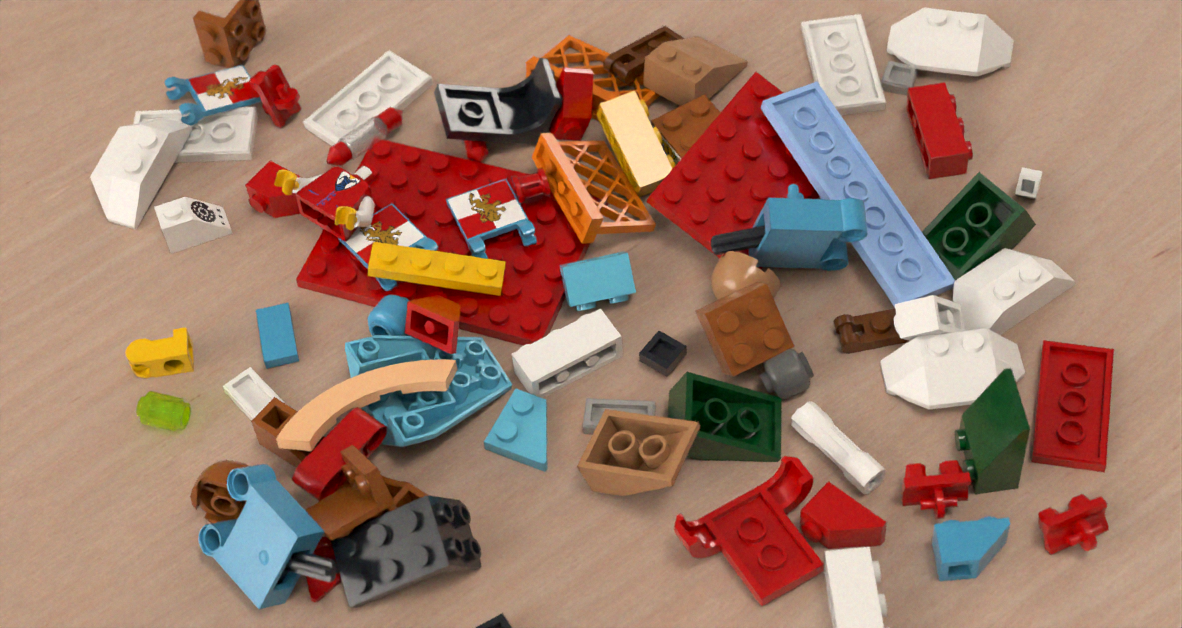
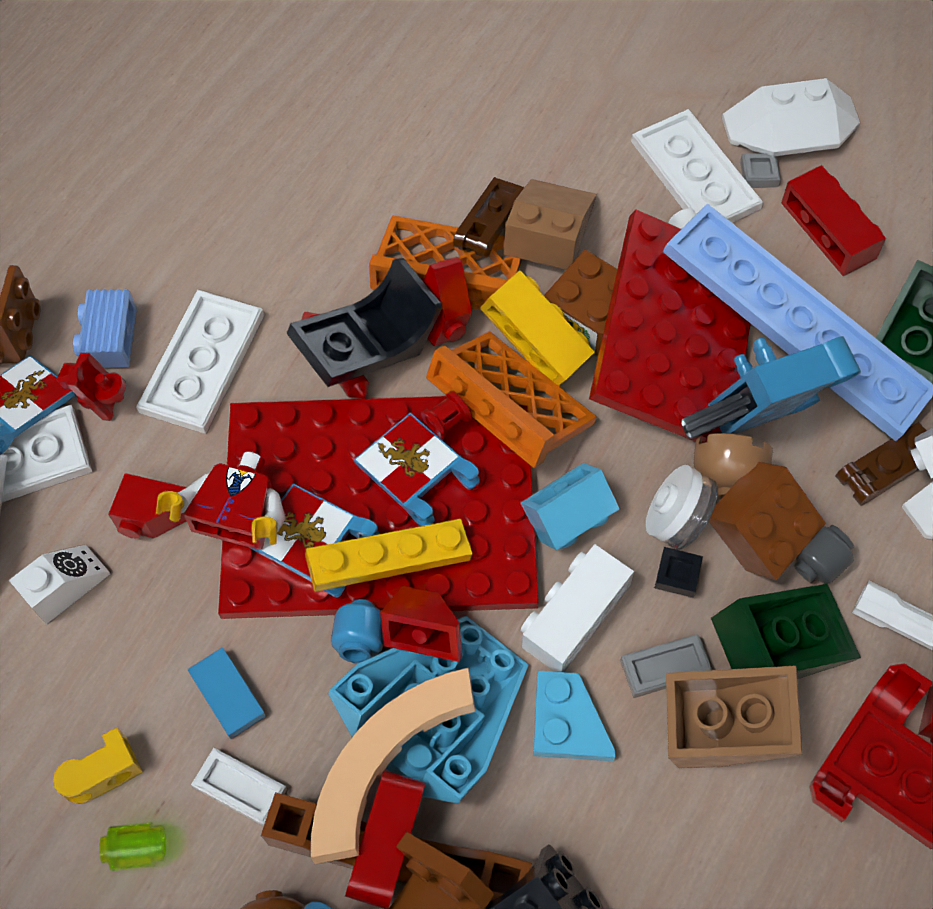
camera: 25 degrees left, 10 degrees up
(308, 58) = (106, 327): none -> light blue brick
(364, 136) = (220, 407): piece -> none
(682, 301) = (681, 507): none -> white piece

